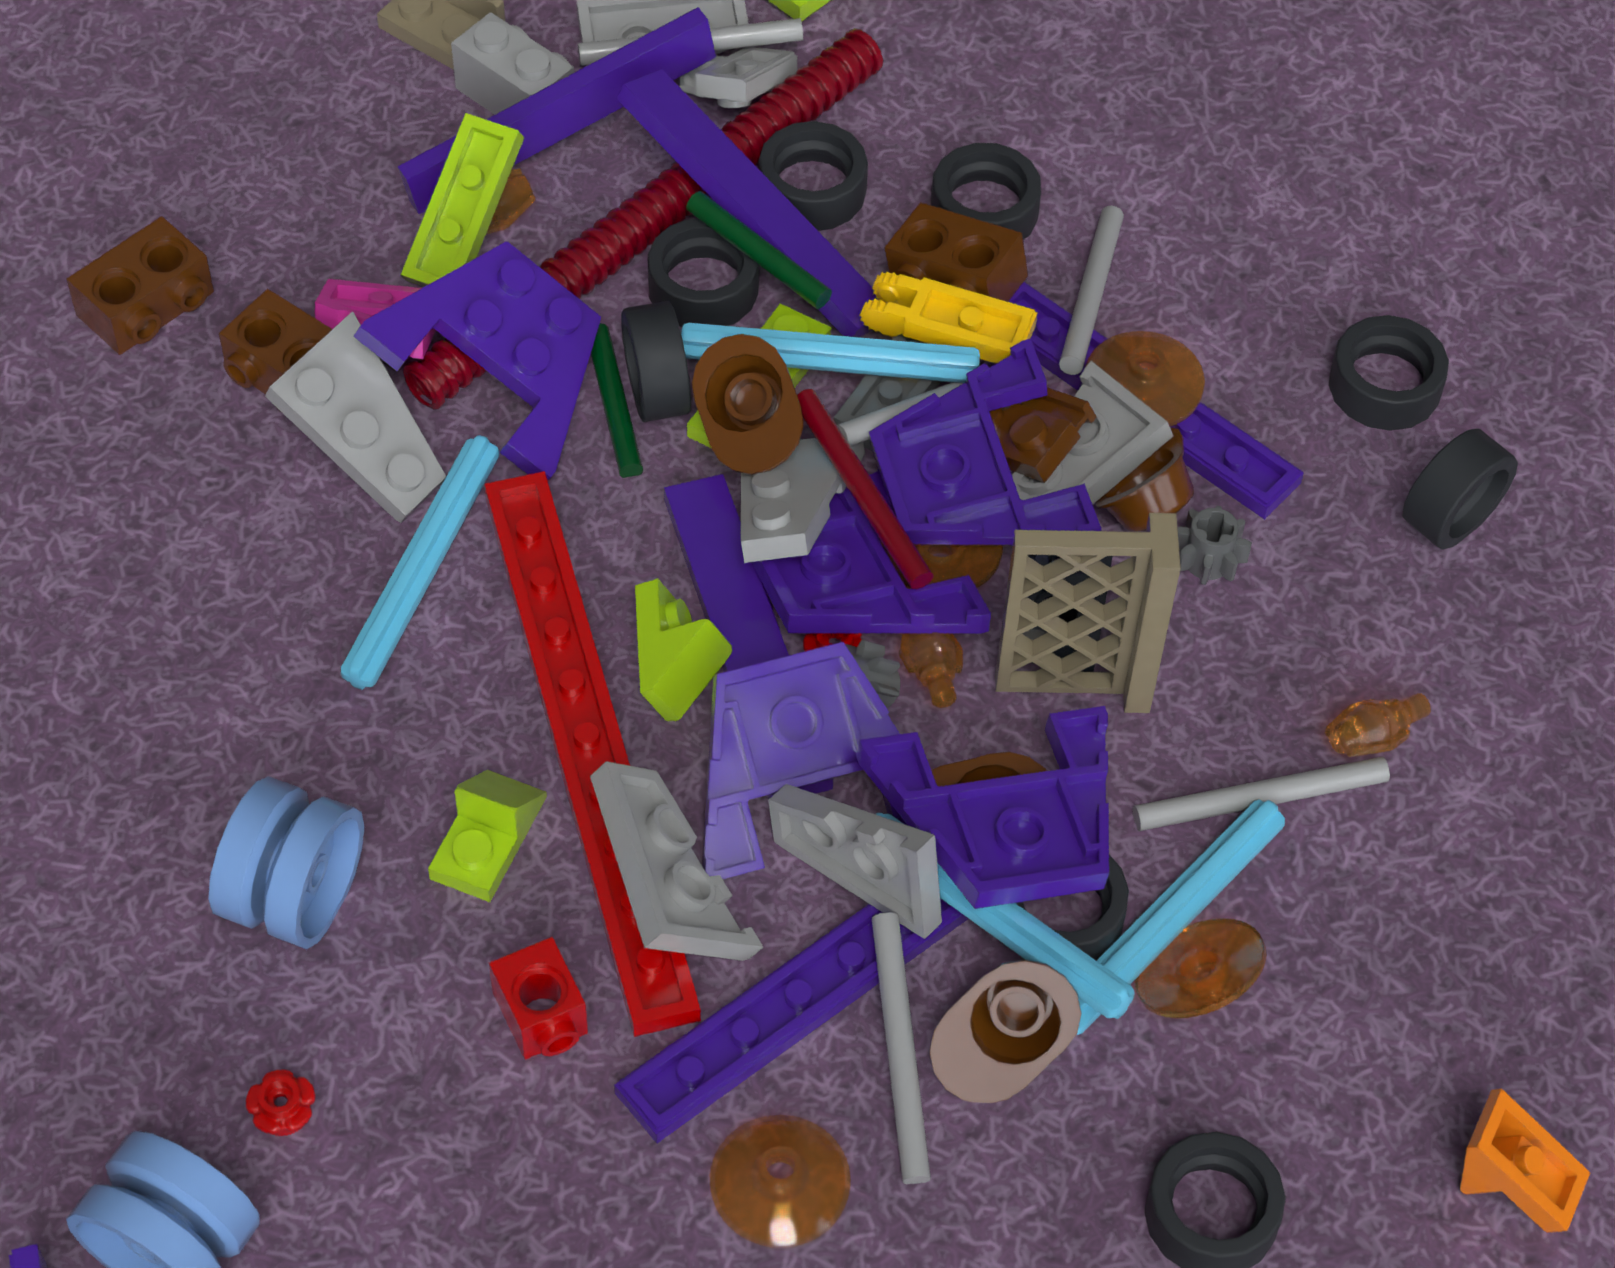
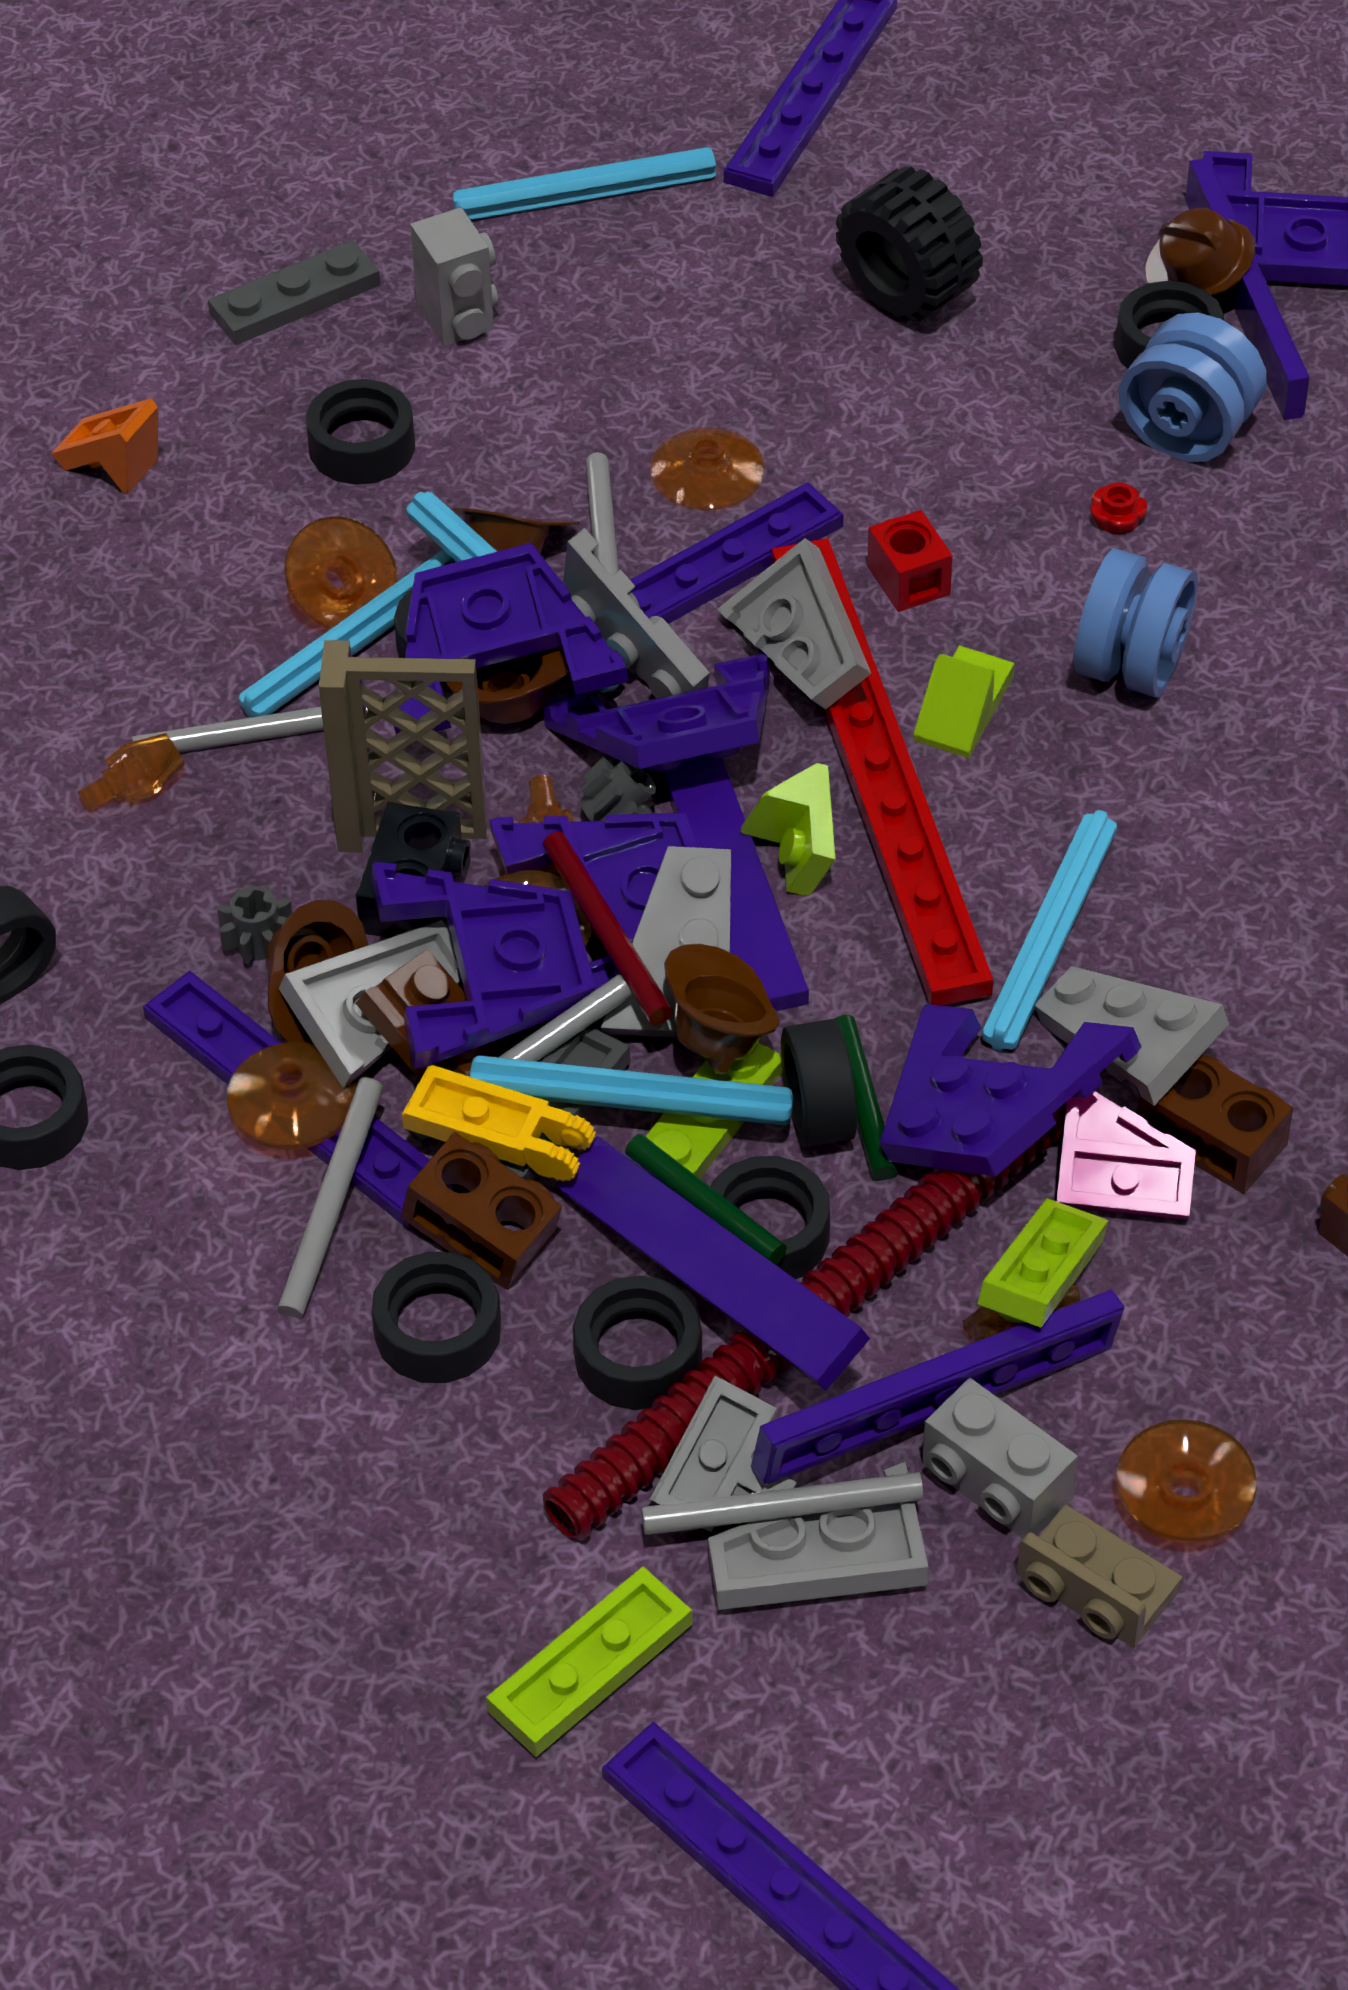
camera: 175 degrees left, 5 degrees down
(363, 70) = (1191, 1457): none -> clear orange dish

